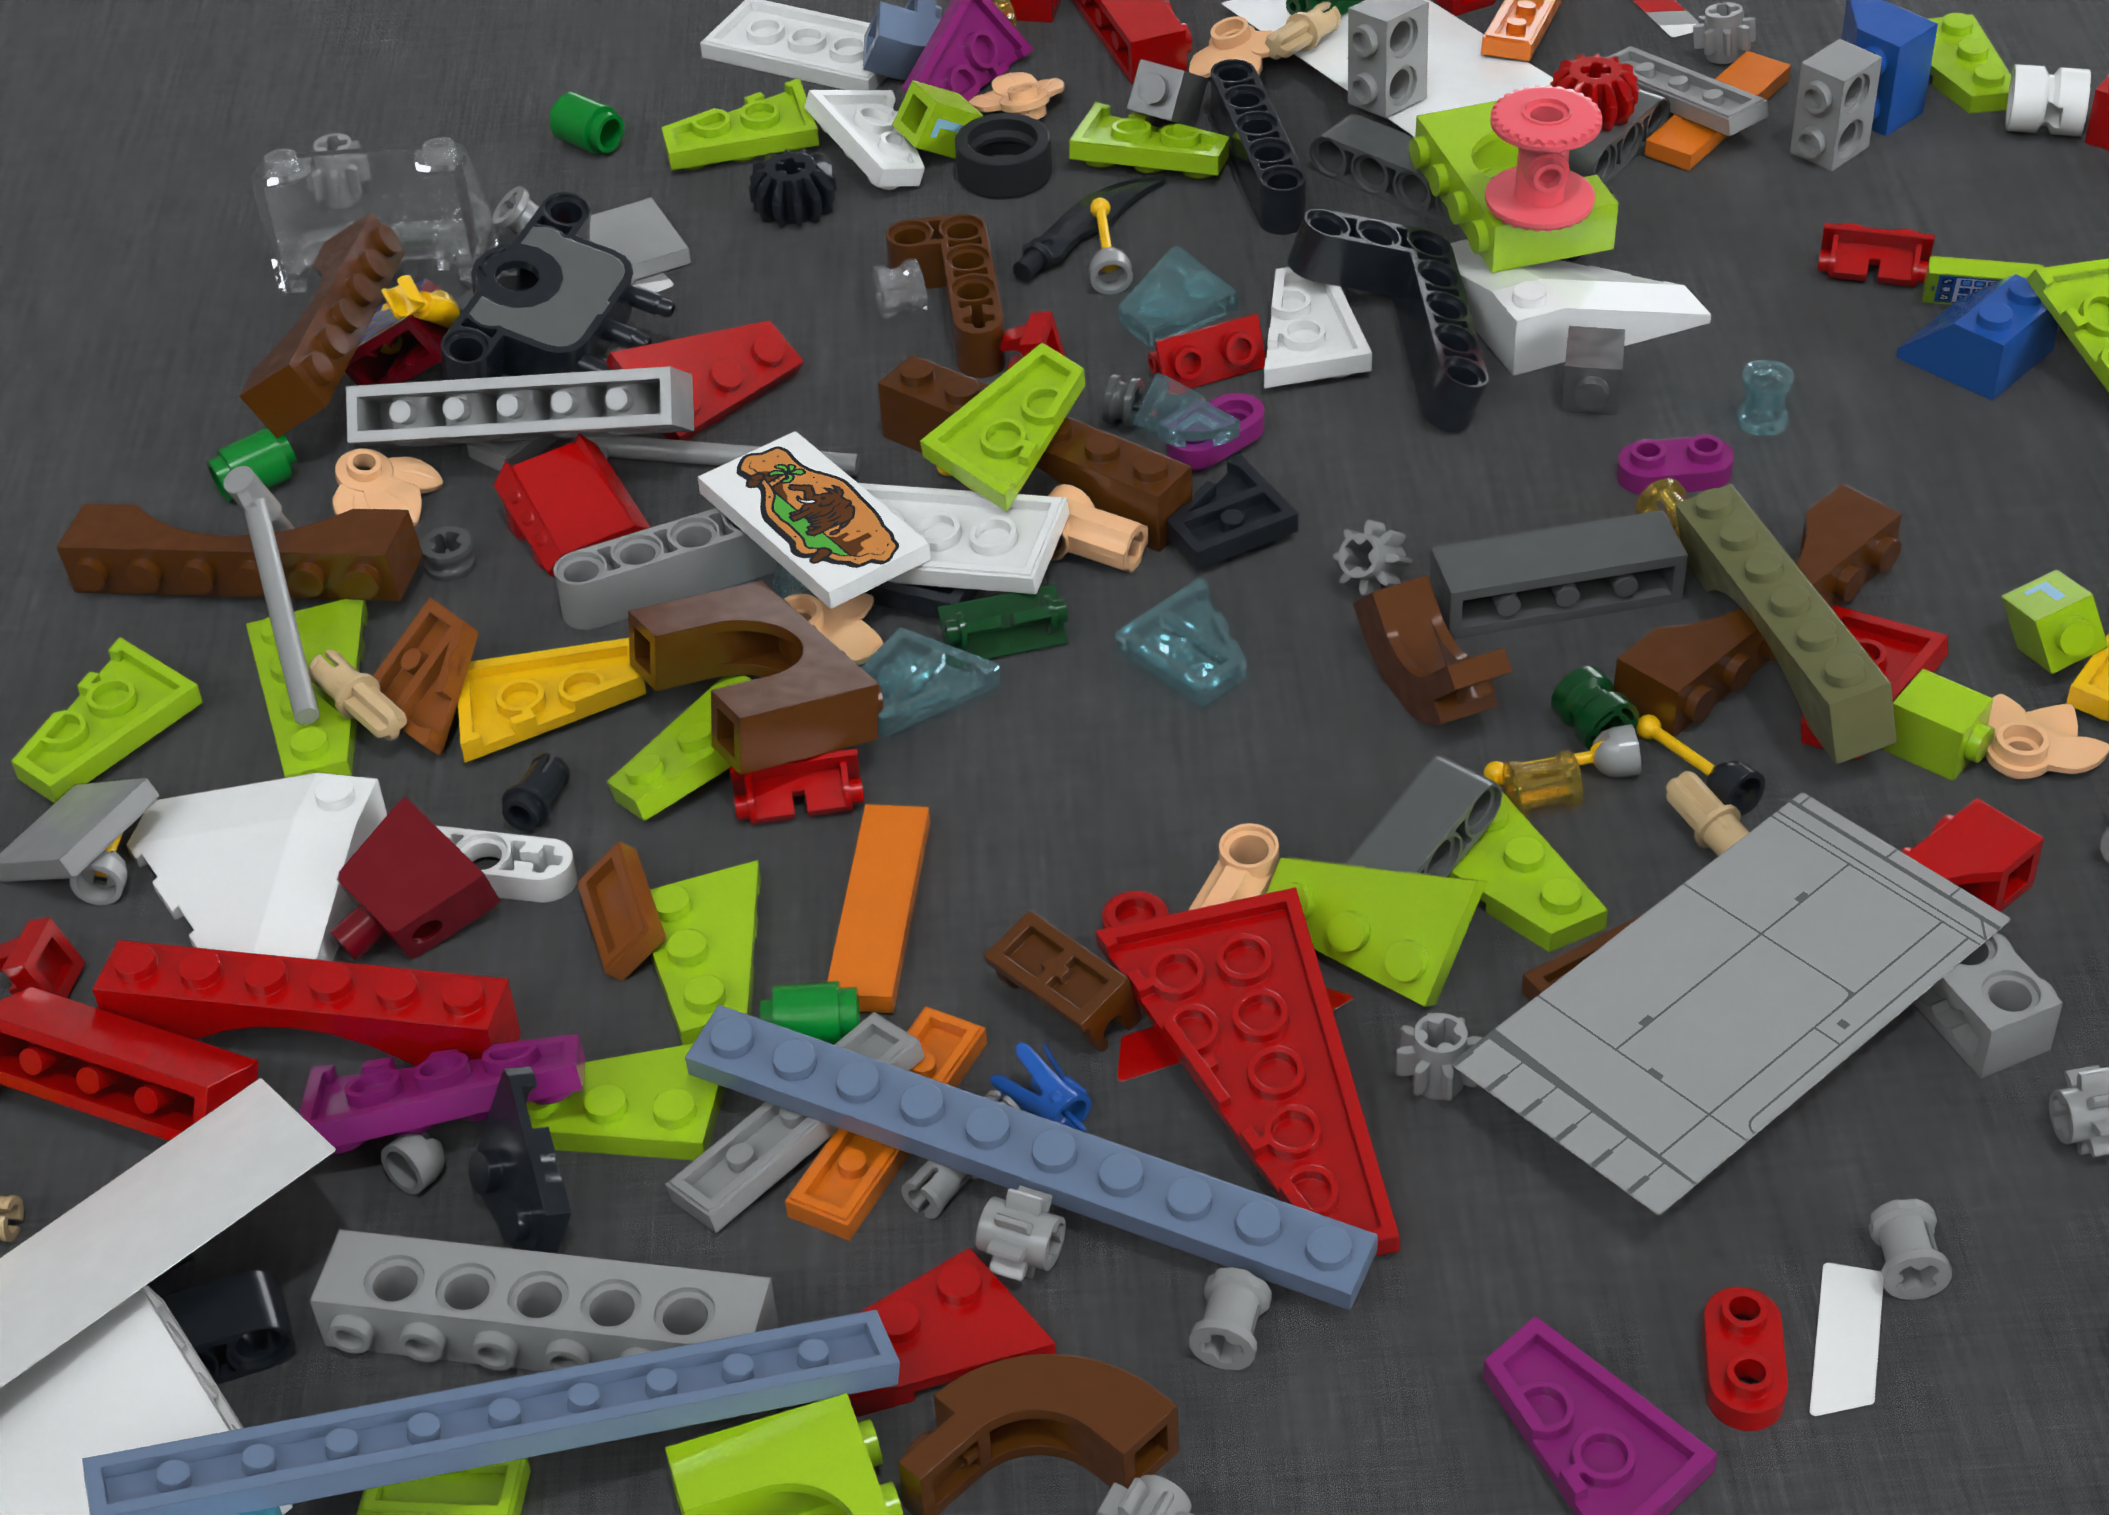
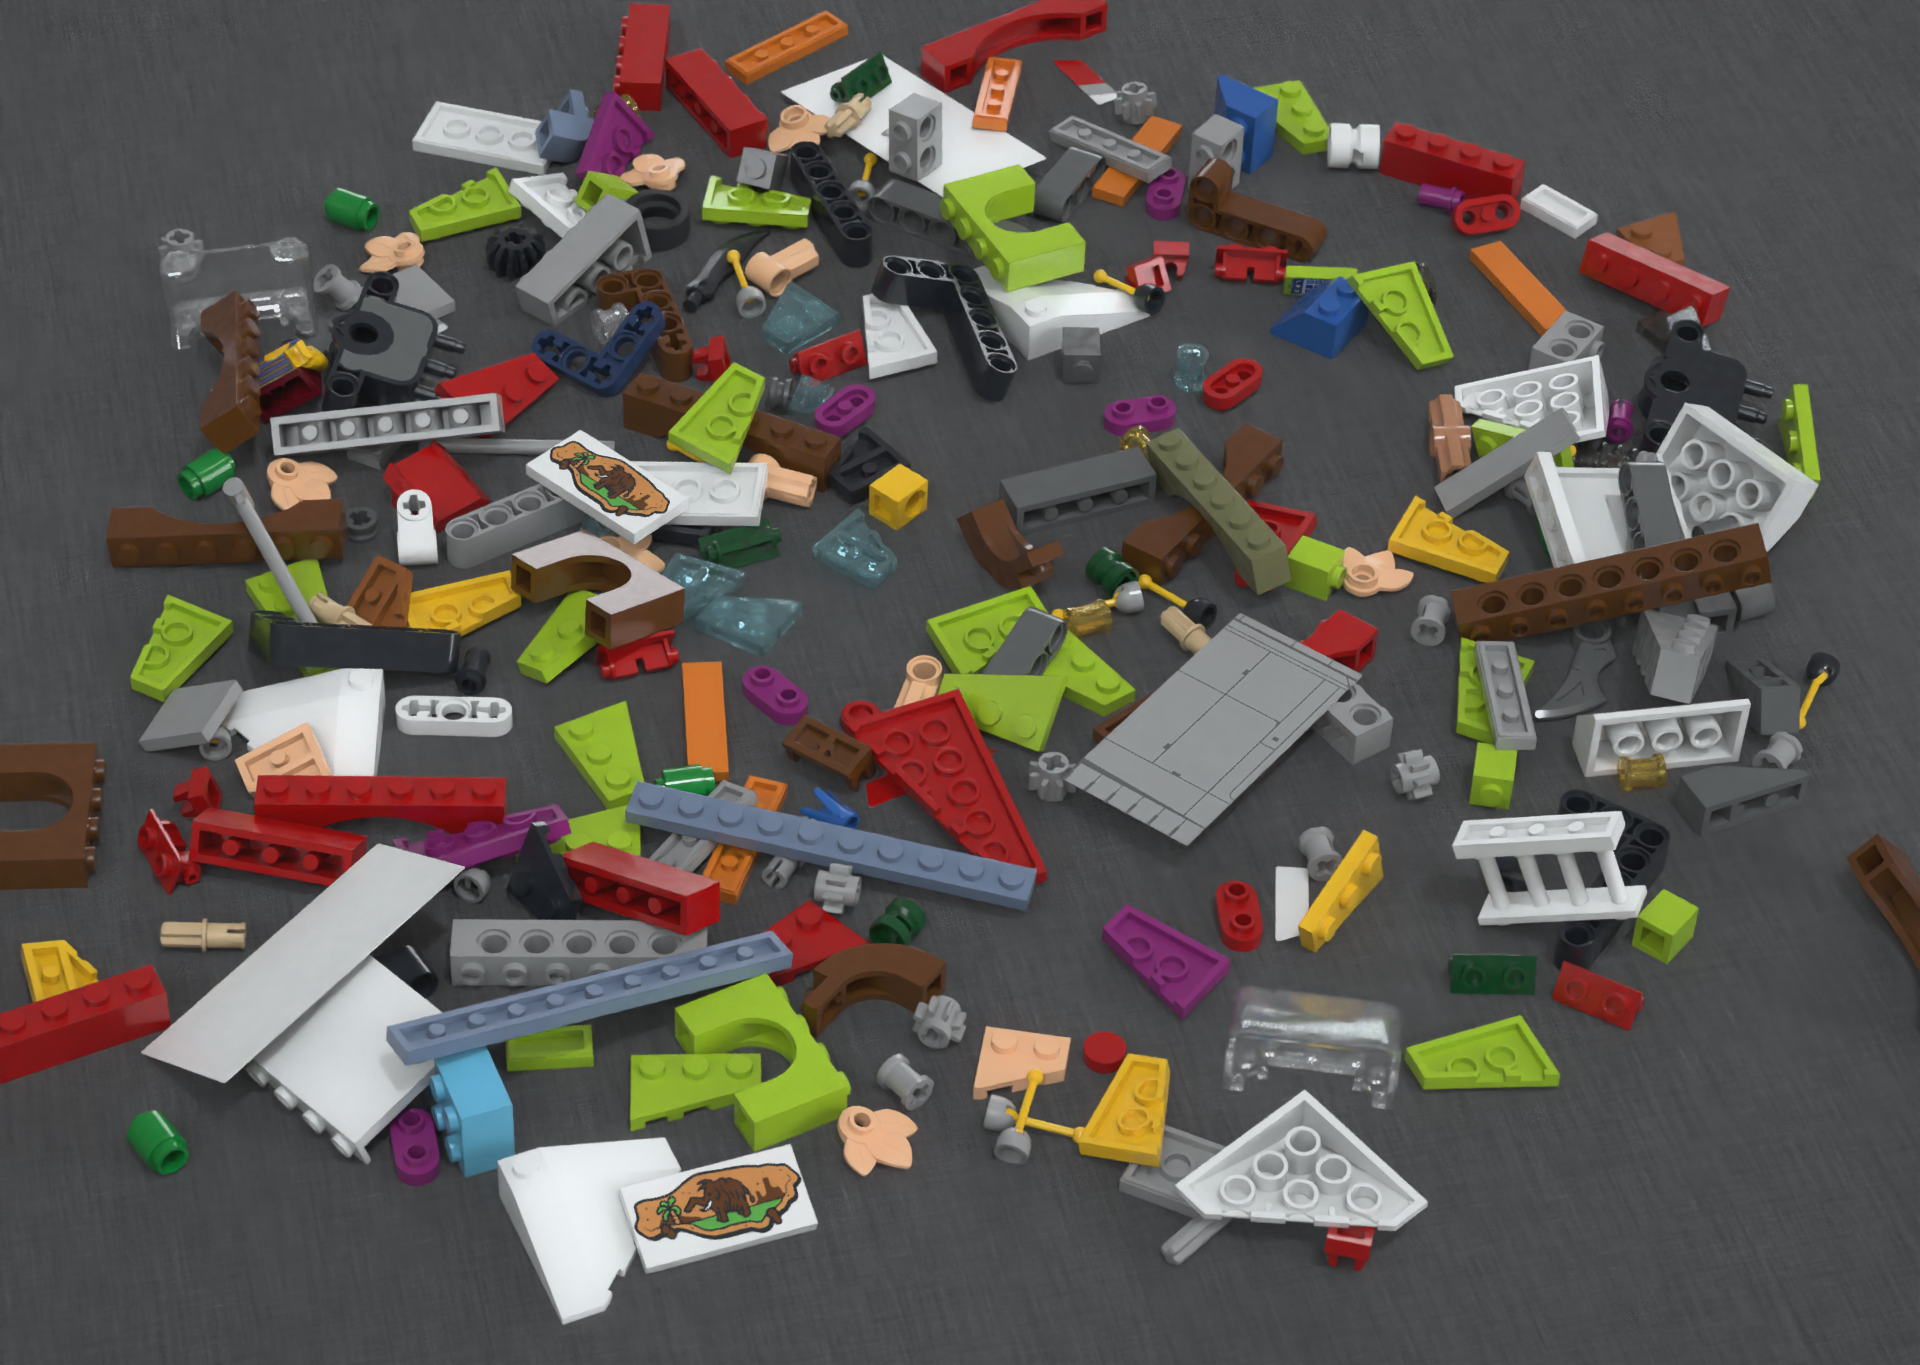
camera: 15 degrees left, 0 degrees up
(189, 911) = (288, 754): none -> light nougat wing
(339, 738) = (288, 642): none -> black beam
(409, 887) = (421, 731): dark red torso -> none
(515, 566) = (416, 532): none -> white piece
(621, 911) = (551, 736): dark orange tile -> none
(629, 181) = (391, 252): none -> light nougat plate
(673, 1206) = (644, 888): none -> red brick
(877, 340) = (608, 361): none -> dark blue beam
(910, 174) = (600, 244): none -> light grey wedge
(993, 745) = (748, 622): none -> clear light blue wing
(1003, 870) = (774, 695): none -> magenta plate
(1113, 1316) = (899, 923): none -> dark green wheel
(1156, 229) = (778, 270): none -> light nougat piece
(1198, 423) = (836, 407): clear light blue tile -> none
(1230, 1319) = (962, 915): light grey bush -> none
(1269, 564) = (898, 497): none -> yellow brick
(1310, 126) = (862, 187): none -> light grey hinge
(1347, 791) = (975, 633): none -> lime wing
(1372, 557) = (972, 487): light grey gear -> none
(1544, 128) = (1038, 199): coral hose -> none
(1605, 82) = (1056, 158): red gear -> none
(1706, 292) = (1146, 297): none -> black hinge
(1713, 266) = (1148, 271): none -> tile
(1751, 236) = (1174, 255): none -> red tile
(1755, 156) = (1166, 195): none -> magenta plate
(1828, 426) = (1232, 384): none -> red plate
(1864, 190) = (1249, 220): none -> reddish brown beam
(1944, 1337) = (1343, 892): none -> yellow wing
(2054, 621) = (1377, 501): lime brick -> none

